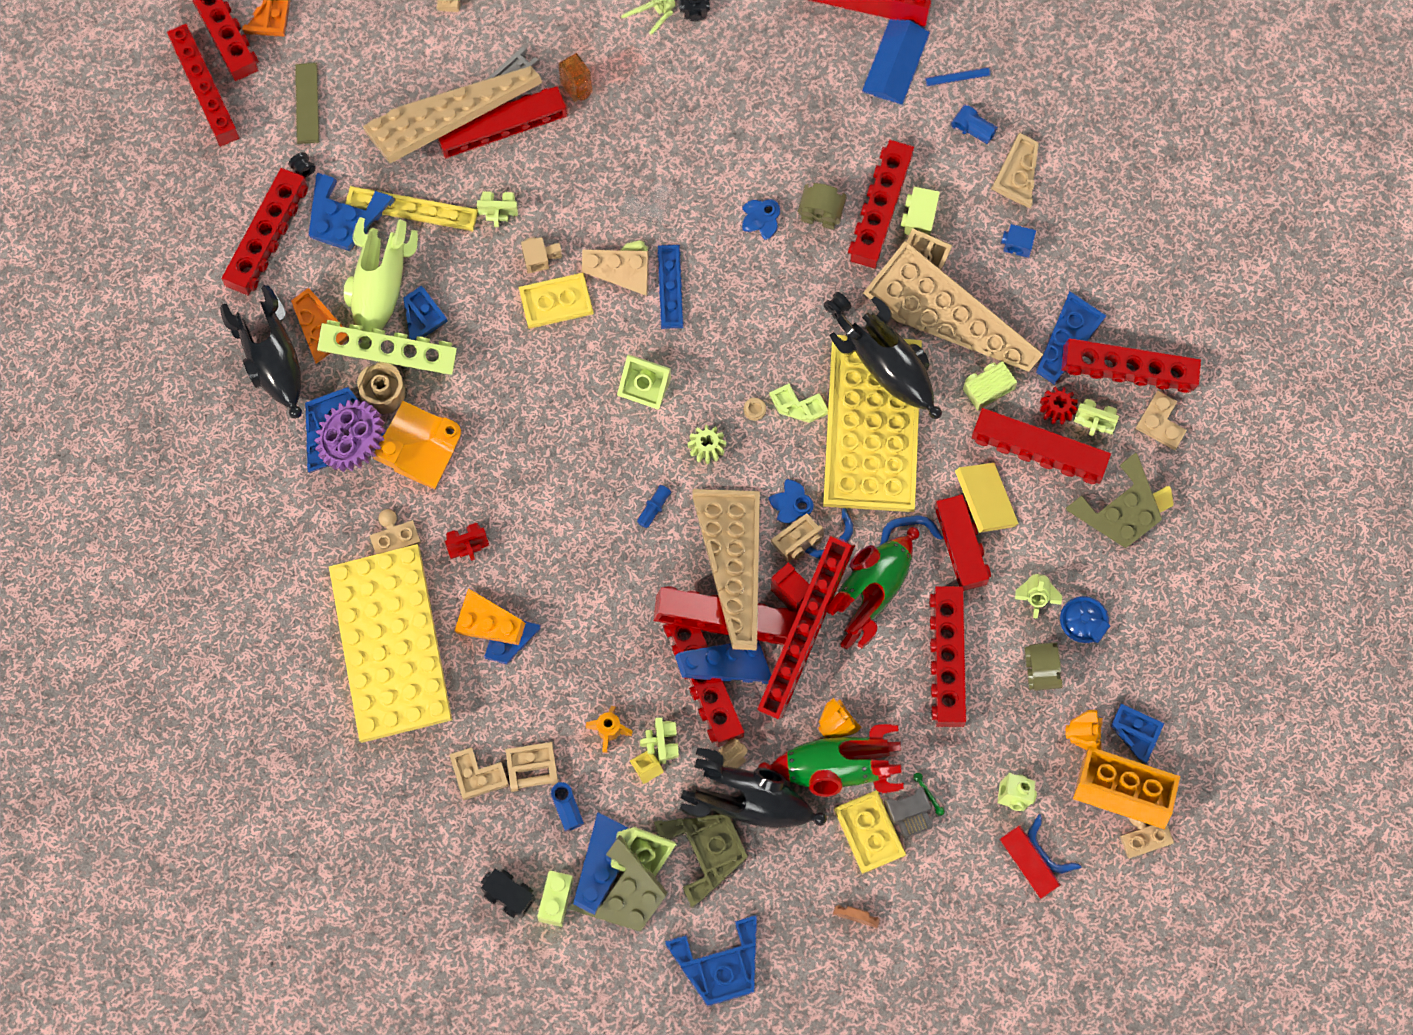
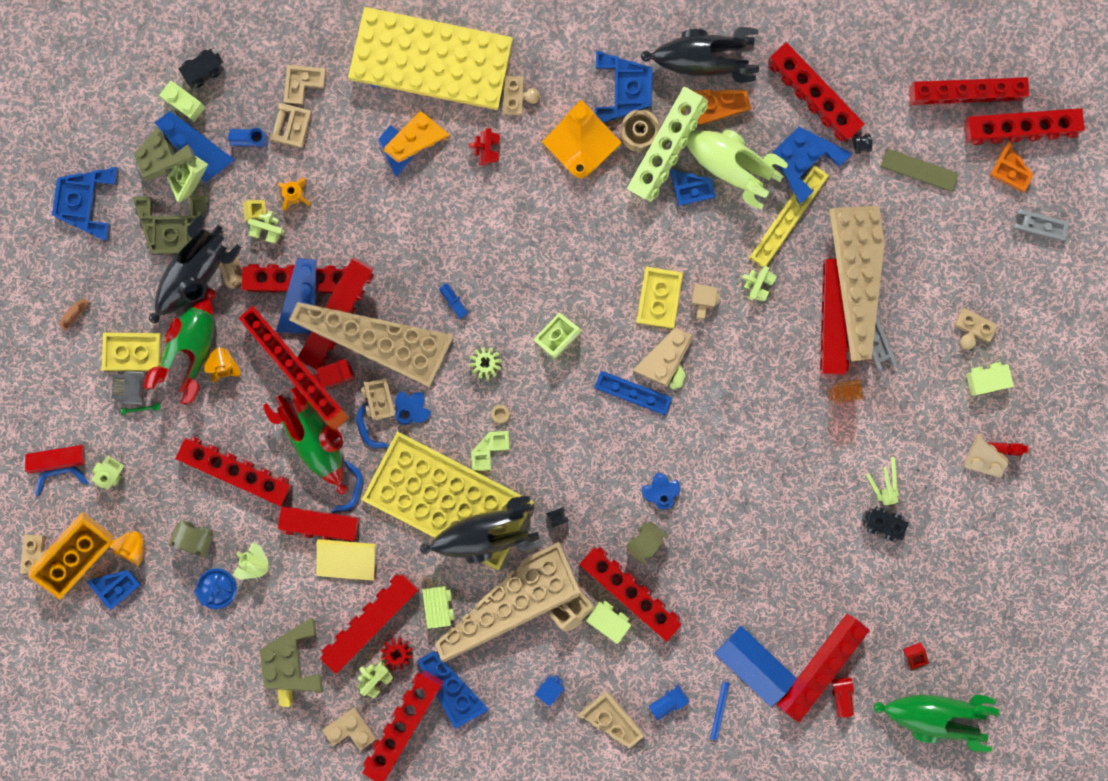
camera: 110 degrees right, 15 degrees up
(350, 435) = (605, 88): medium lavender gear -> none

